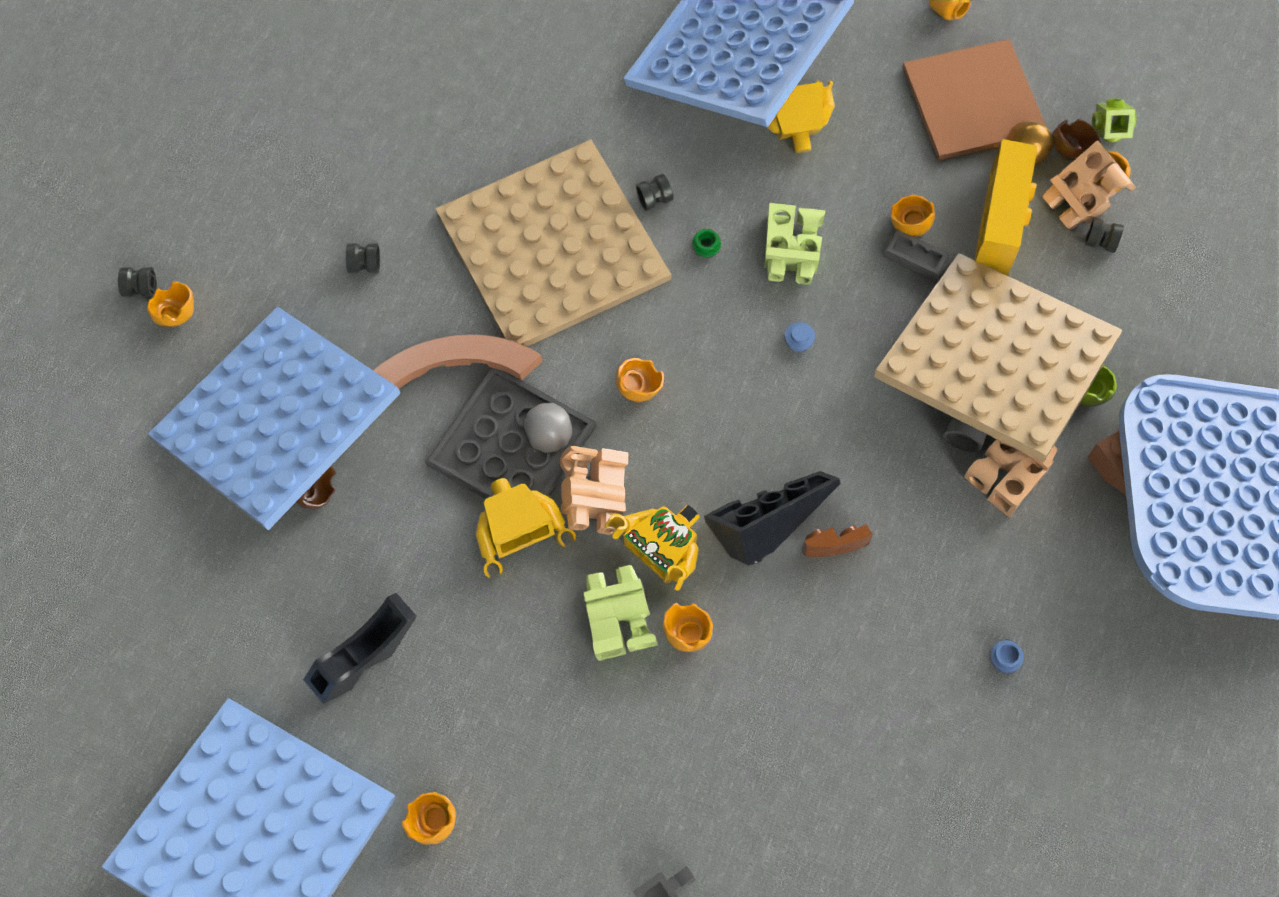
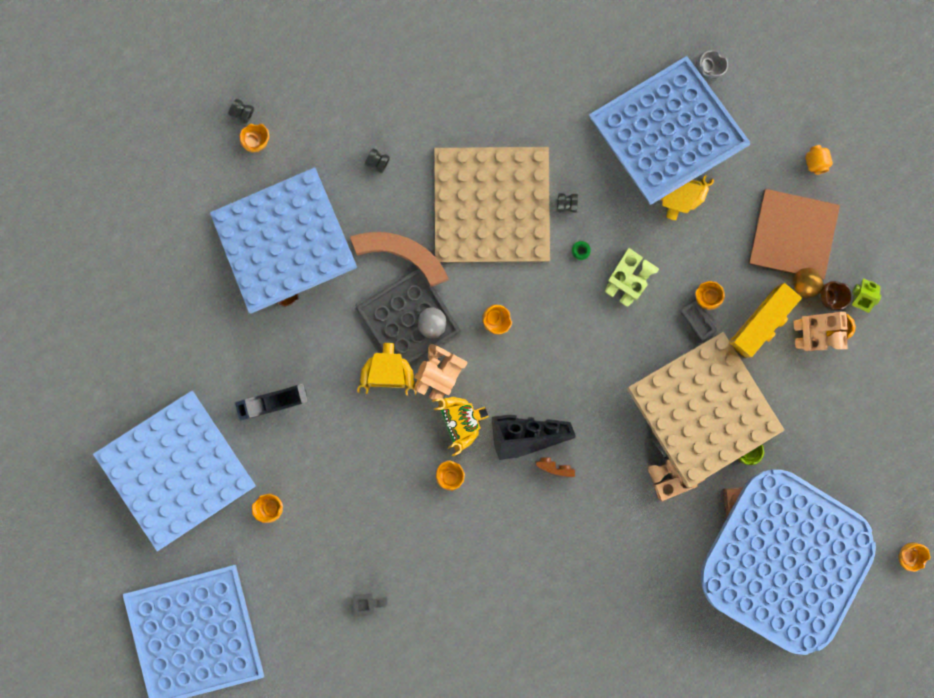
camera: 25 degrees right, 20 degrees up
(613, 604) = (417, 443): yellowish green hips -> none
(799, 336) = (602, 337): medium blue plate -> none
(1006, 656) = (610, 575): medium blue plate -> none
(1110, 238) = (814, 364): pearl dark grey wheel -> none

